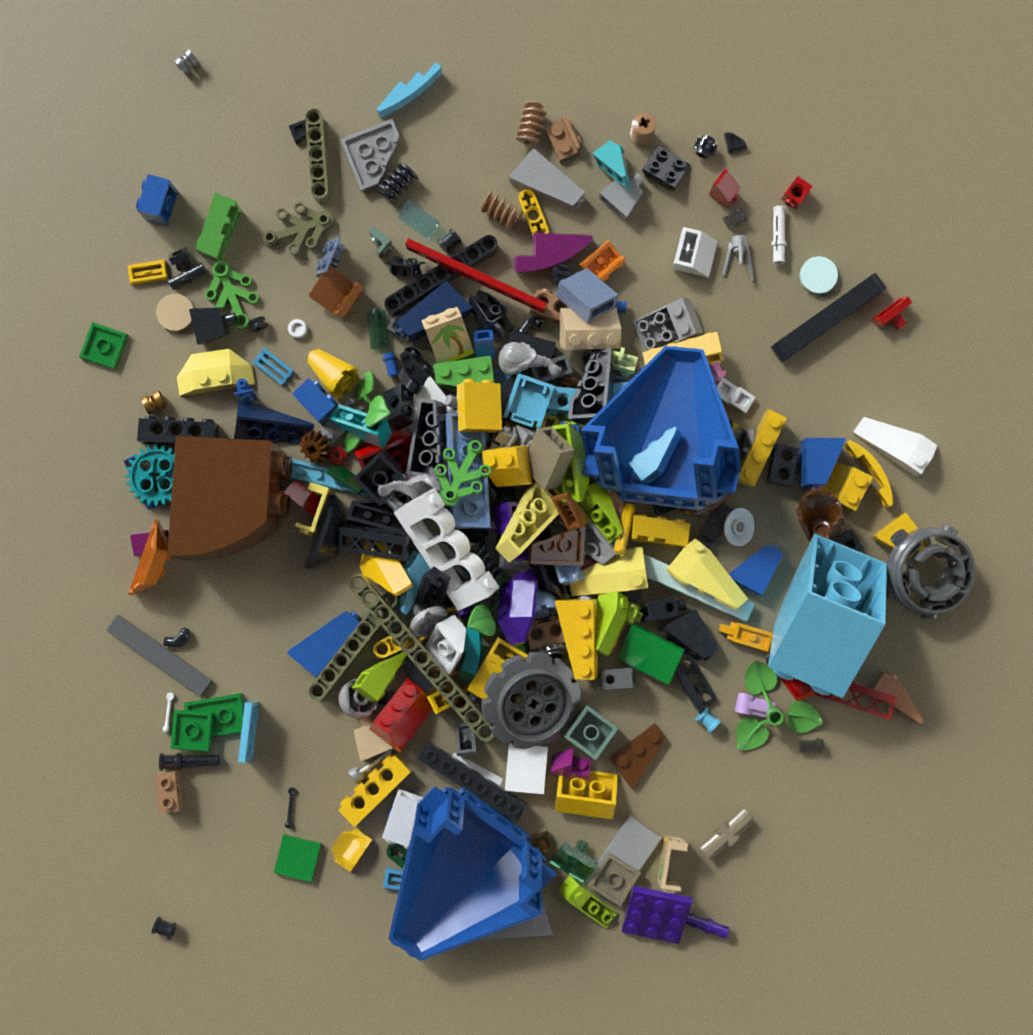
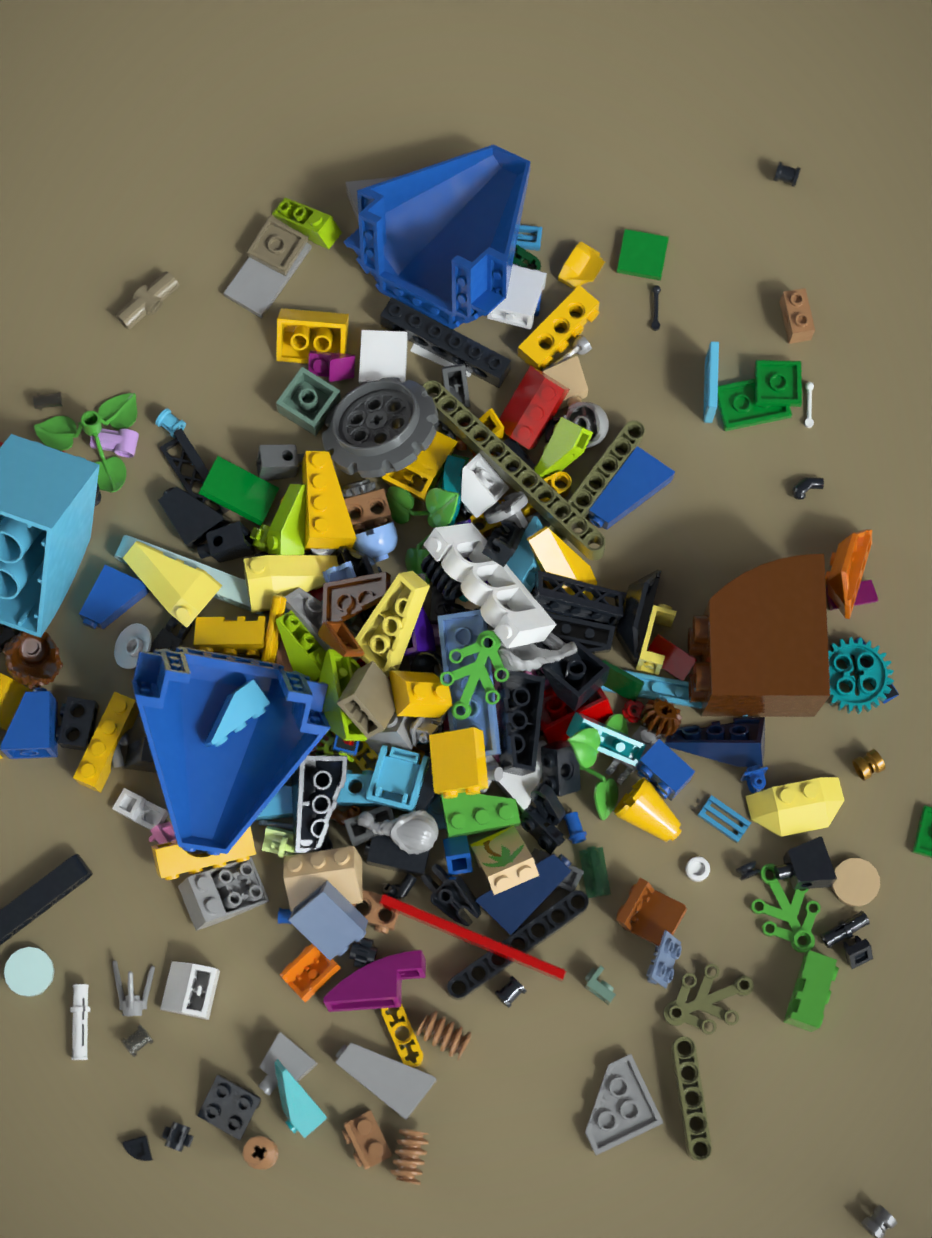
camera: 175 degrees right, 10 degrees down
(148, 425) = (870, 722): black brick -> none
(157, 200) = (895, 1022): blue brick -> none
(159, 655) = (827, 467): dark grey tile -> none
(164, 276) = (876, 937): yellow tile -> none
(209, 761) = (789, 349): black pin -> none
(298, 131) = (720, 1134): black tile -> none
(397, 182) = (582, 1066): black piece -> none
(404, 94) = (583, 1190): medium azure slope -> none
(405, 267) = (565, 952): black hinge -> none
(418, 219) = (553, 1020): clear light blue slope -> none
(518, 606) = (400, 533): dark purple wedge -> none
(544, 842) = (359, 281): dark brown bush -> none
(574, 860) = (323, 262): clear green tile -> none
(637, 754) = (253, 383): reddish brown wing -> none
(656, 914) = (228, 208): dark purple plate -> none
(669, 843) = (209, 283): tan panel -> none
(707, 926) = (172, 204): dark purple pin -> none
(725, 189) = (150, 1076): slope -> none
(747, 635) = (123, 520): light orange hinge -> none
(801, 187) = (45, 1082): red brick -> none

